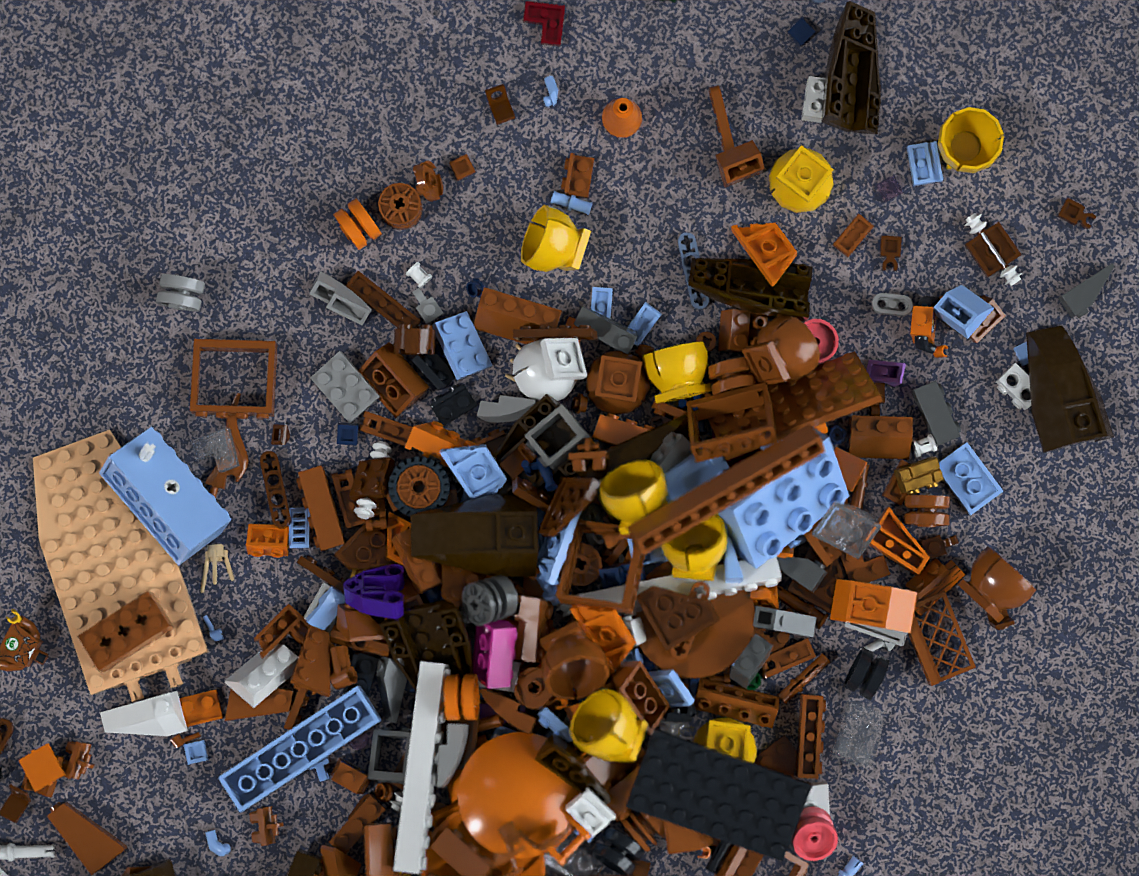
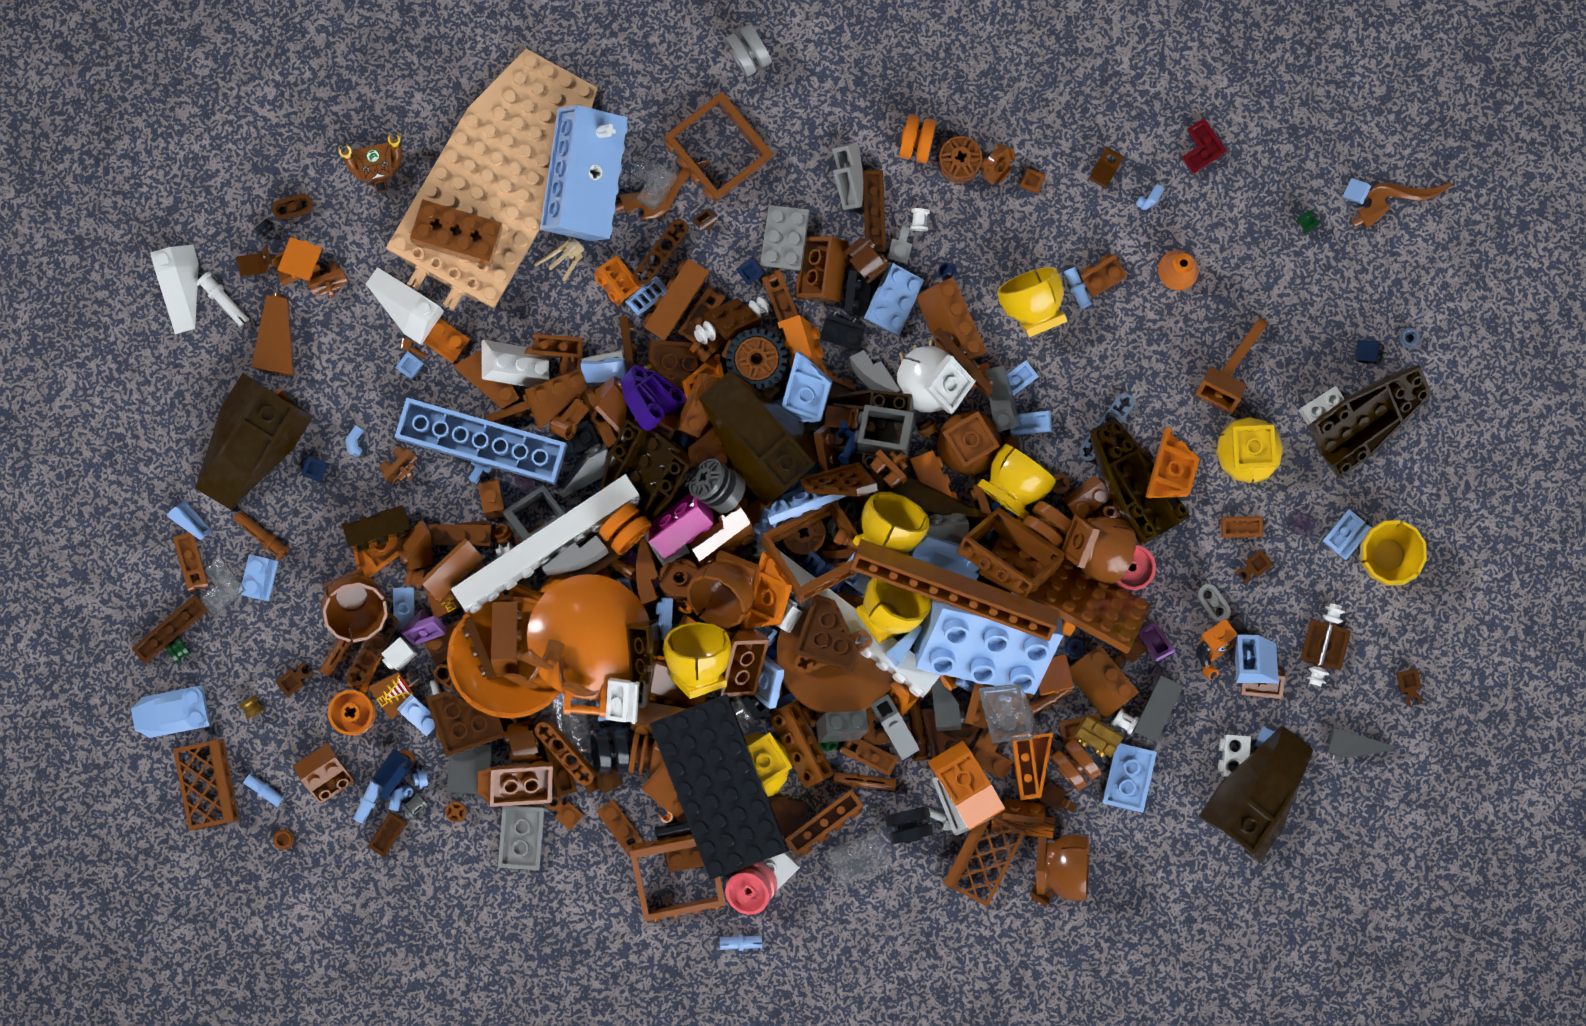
camera: 50 degrees right, 0 degrees up
(214, 634) = (511, 304): light blue hand -> none

